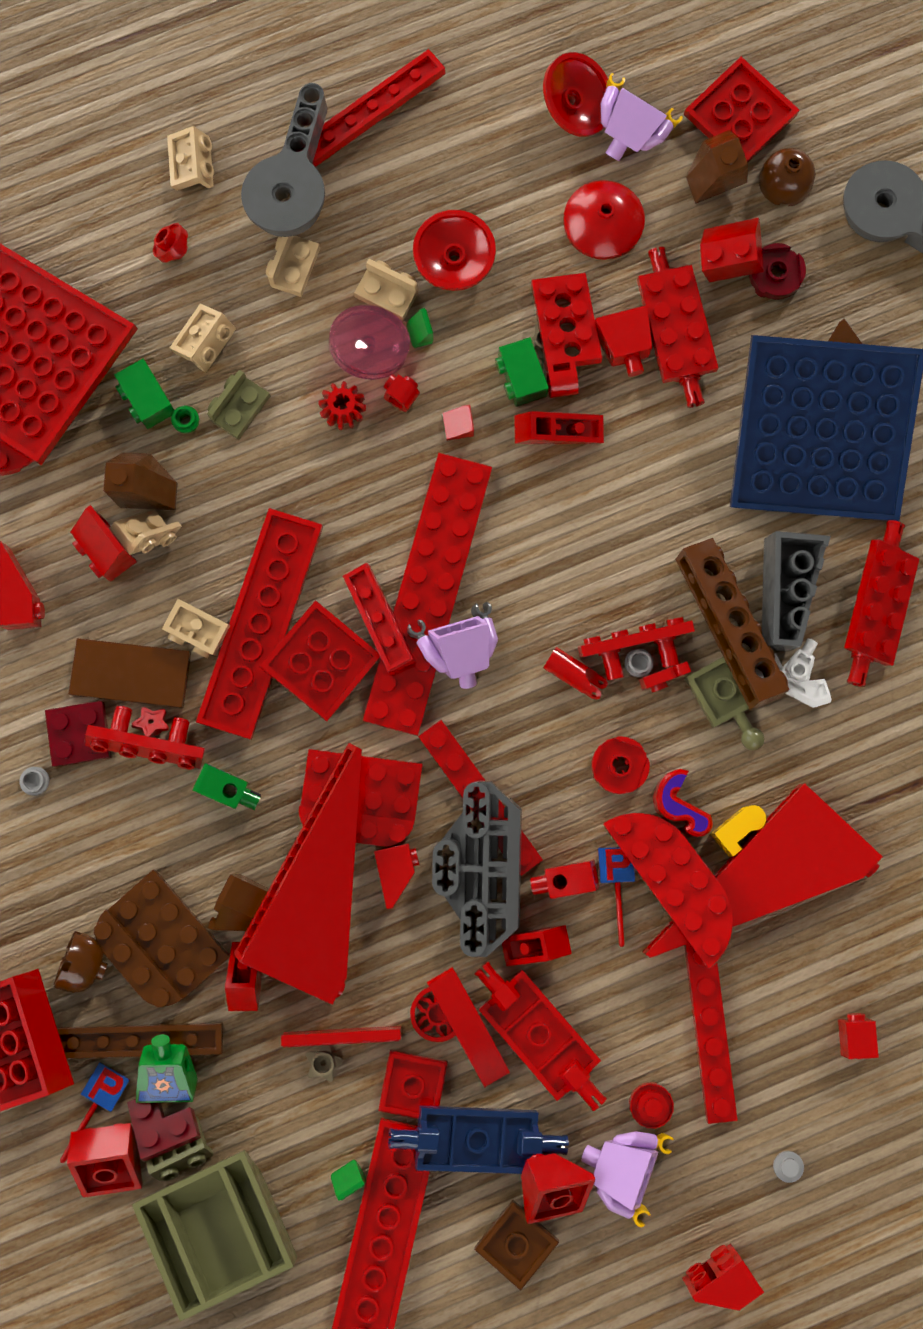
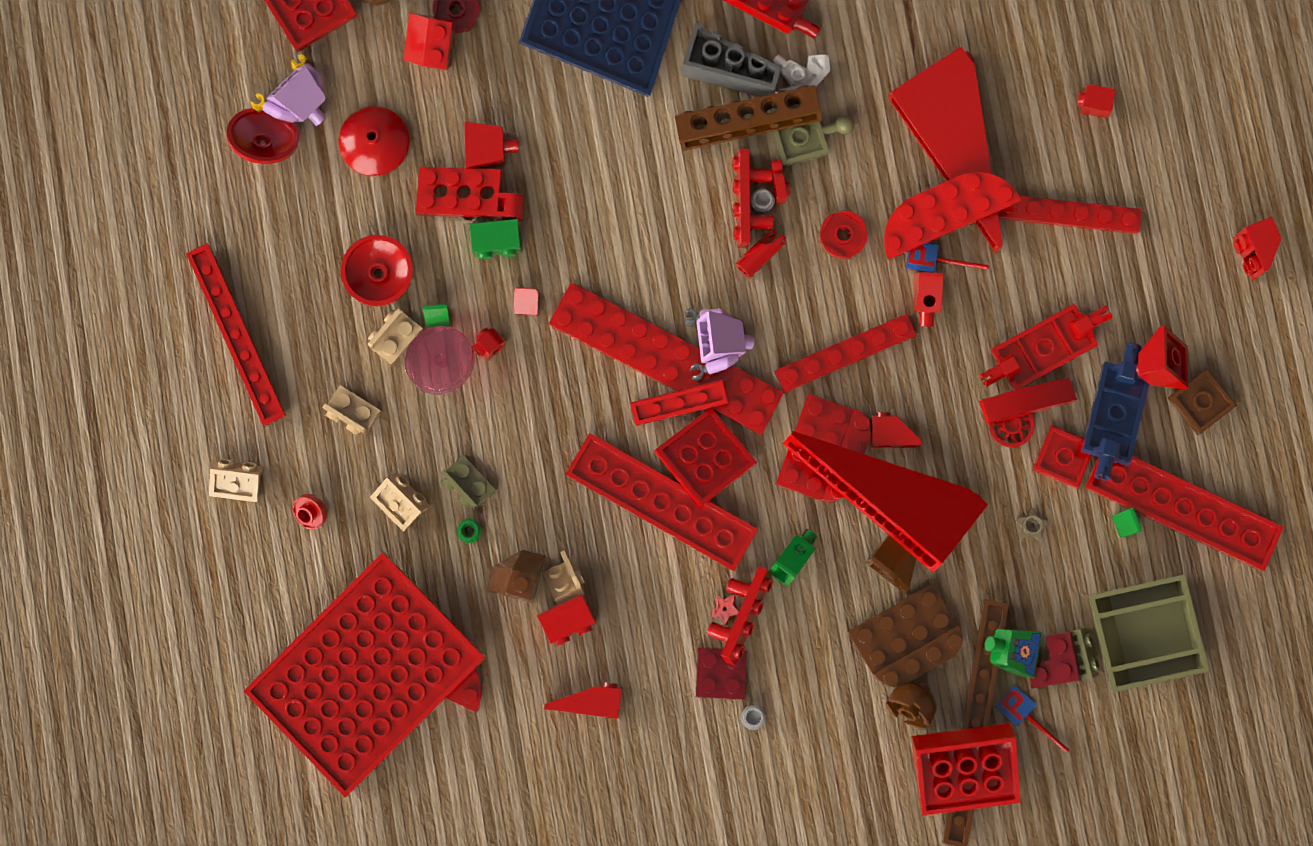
camera: 75 degrees left, 0 degrees up
(105, 1160) = (1073, 713): red slope -> none
(130, 673) = (679, 620): reddish brown tile -> none
(144, 394) = (440, 560): green brick -> none
(196, 628) = (655, 554): tan bracket -> none
(242, 985) = (953, 574): red slope -> none
(291, 173) = (278, 392): dark grey beam -> none
(341, 1036) = (1014, 504): red tile -> none
(350, 398) = (495, 388): red gear -> none
(476, 872) = (909, 368): dark grey connector -> none
(536, 946) = (974, 334): red slope -> none
(558, 428) = (551, 220): red slope -> none
(625, 1170) = (1162, 303): lavender torso -> none
(651, 1105) = (1116, 272): red plate -> none
(675, 809) = (888, 200): animal -> none
(677, 325) = (484, 101): red plate -> none
(717, 167) = (354, 35): reddish brown slope -> none
(738, 826) = (913, 153): yellow leg -> none
(788, 1166) = (1184, 178): light grey plate -> none

